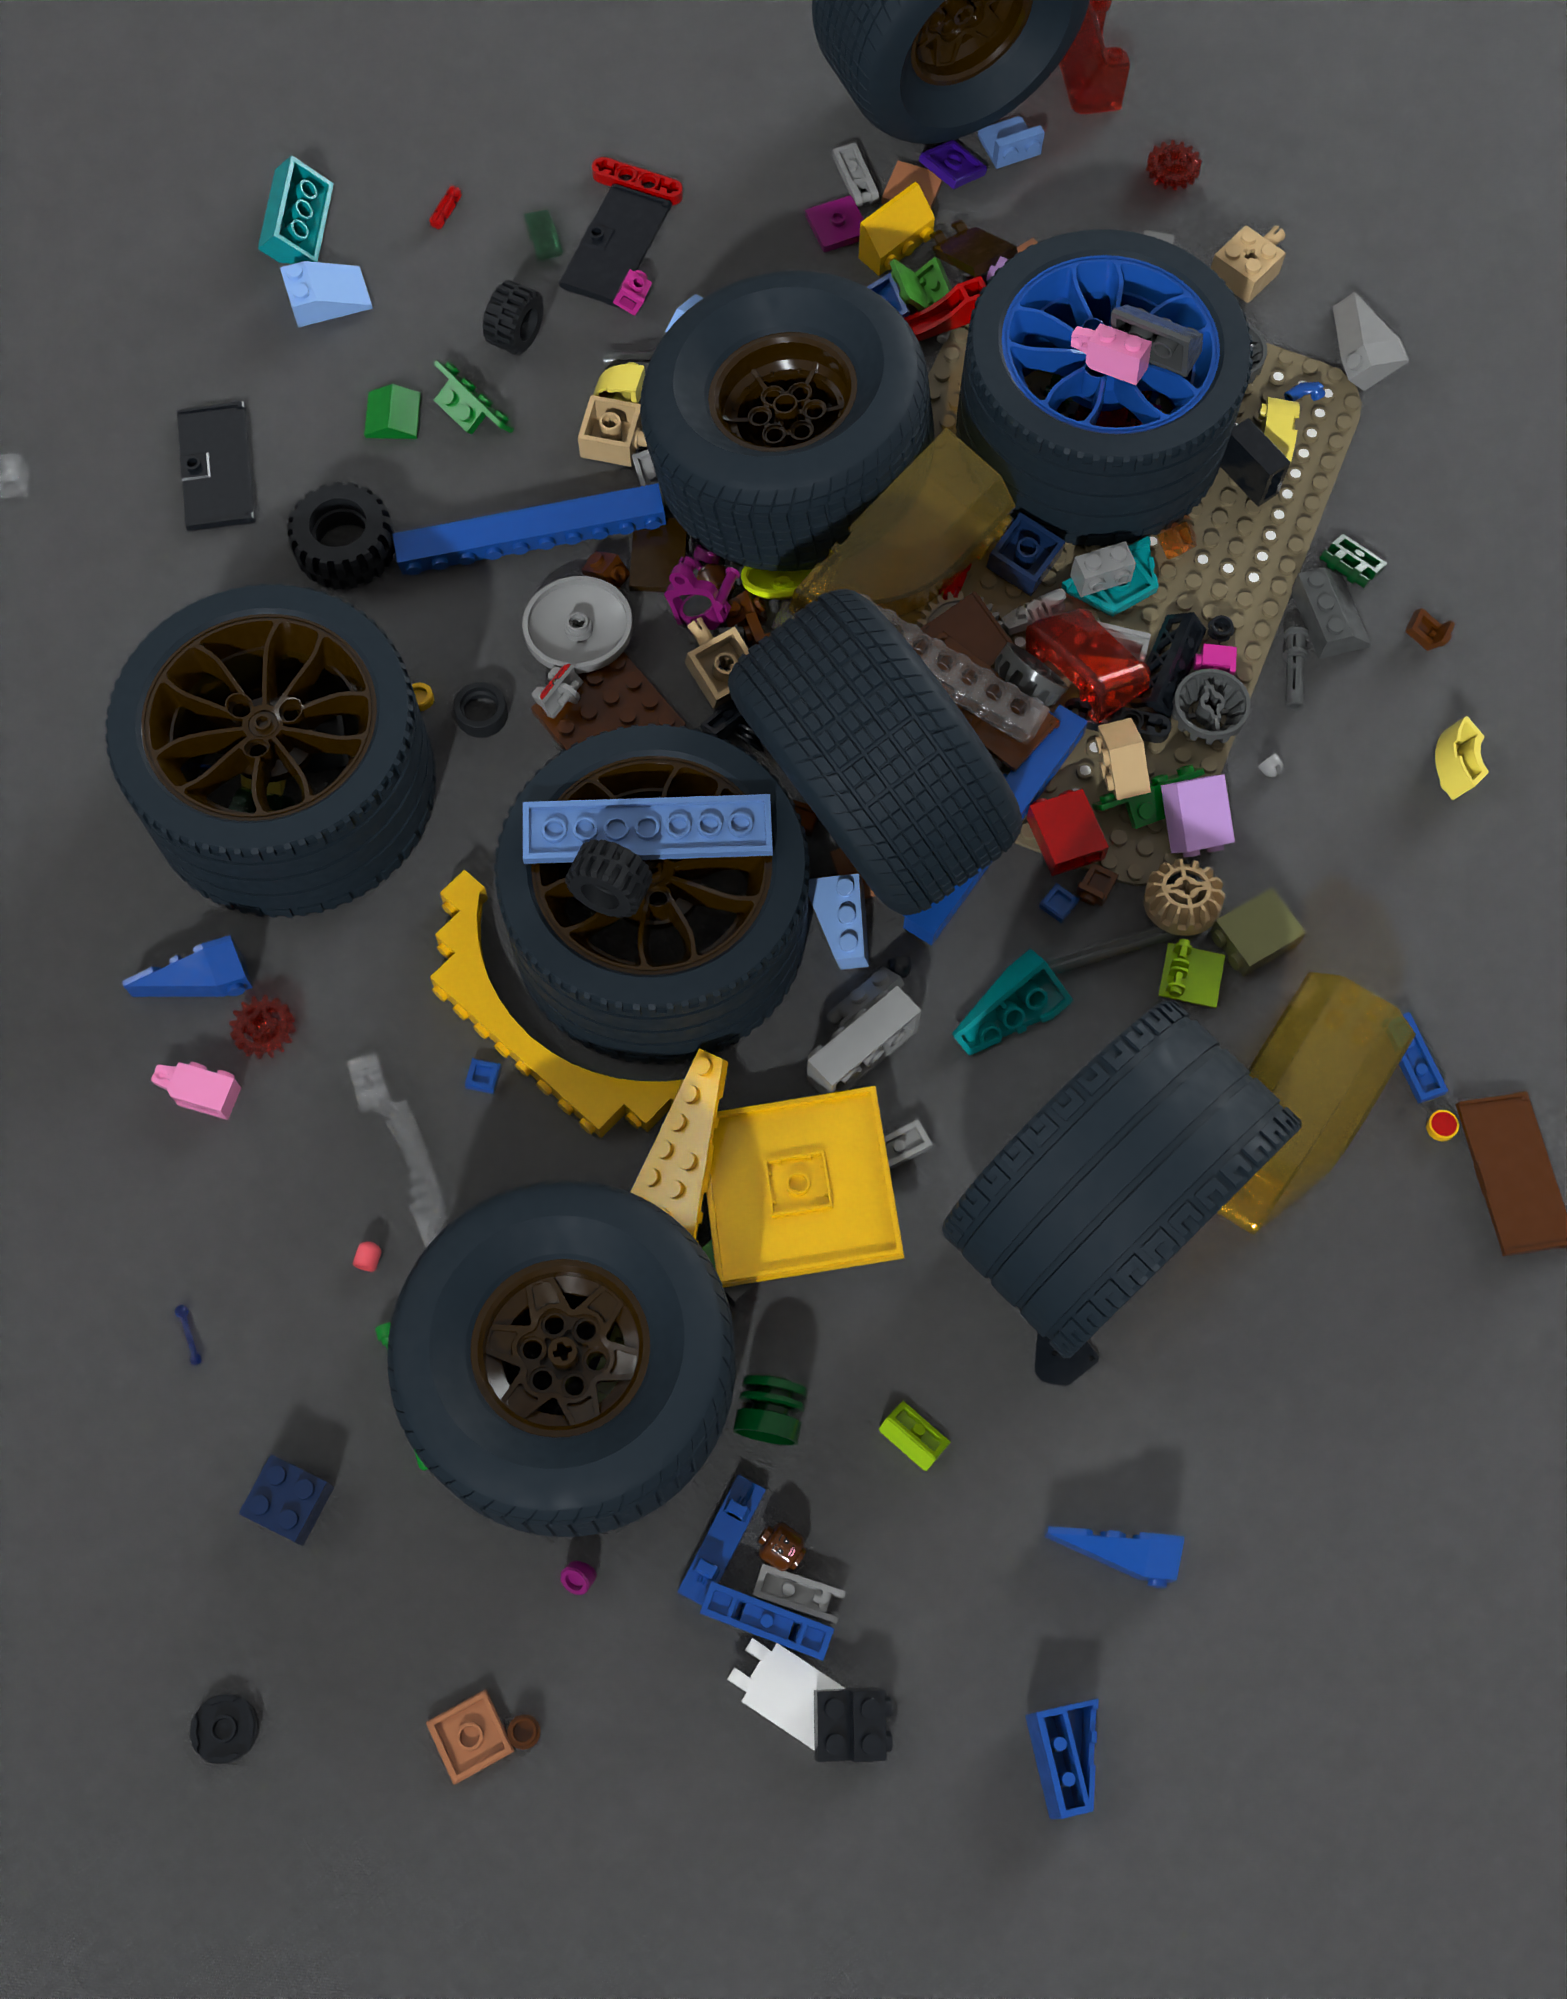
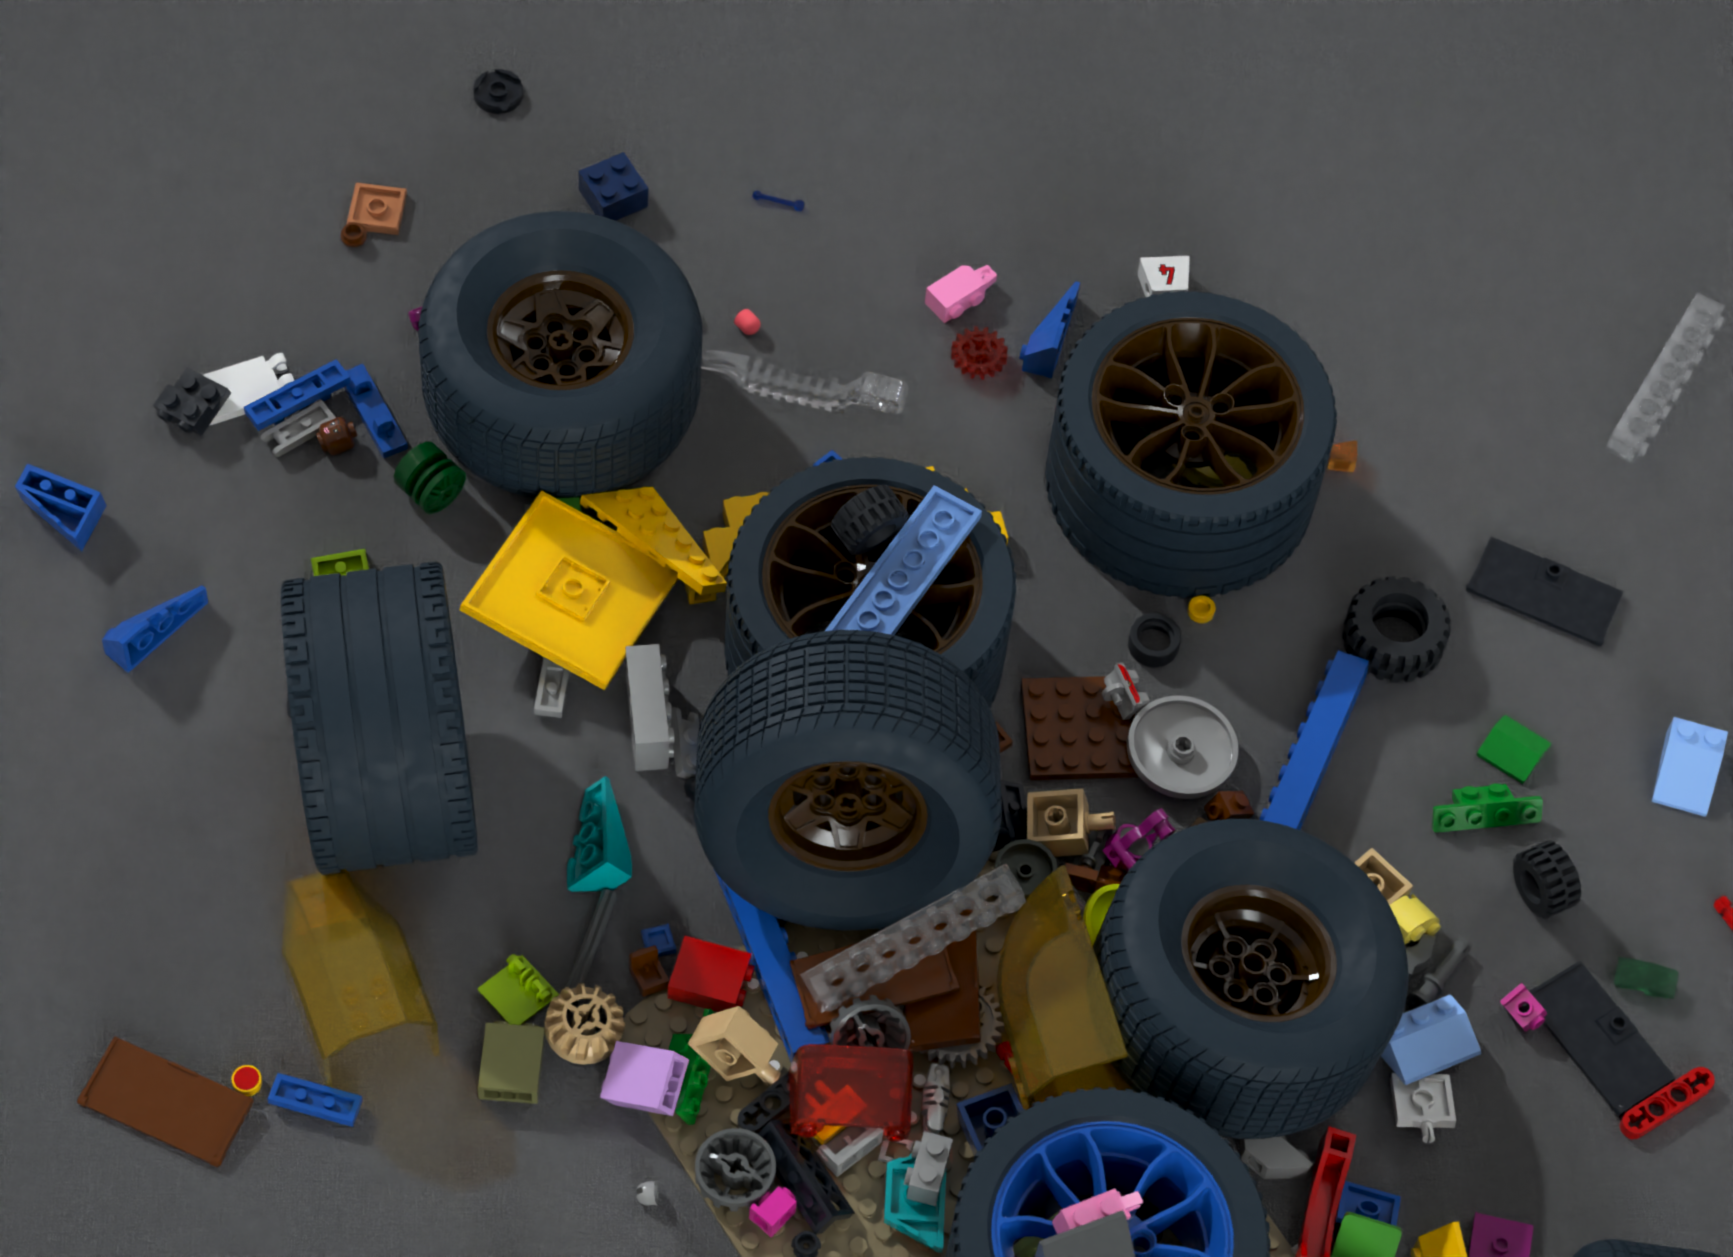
camera: 120 degrees right, 10 degrees down
(66, 918) = (1164, 274): none -> white torso

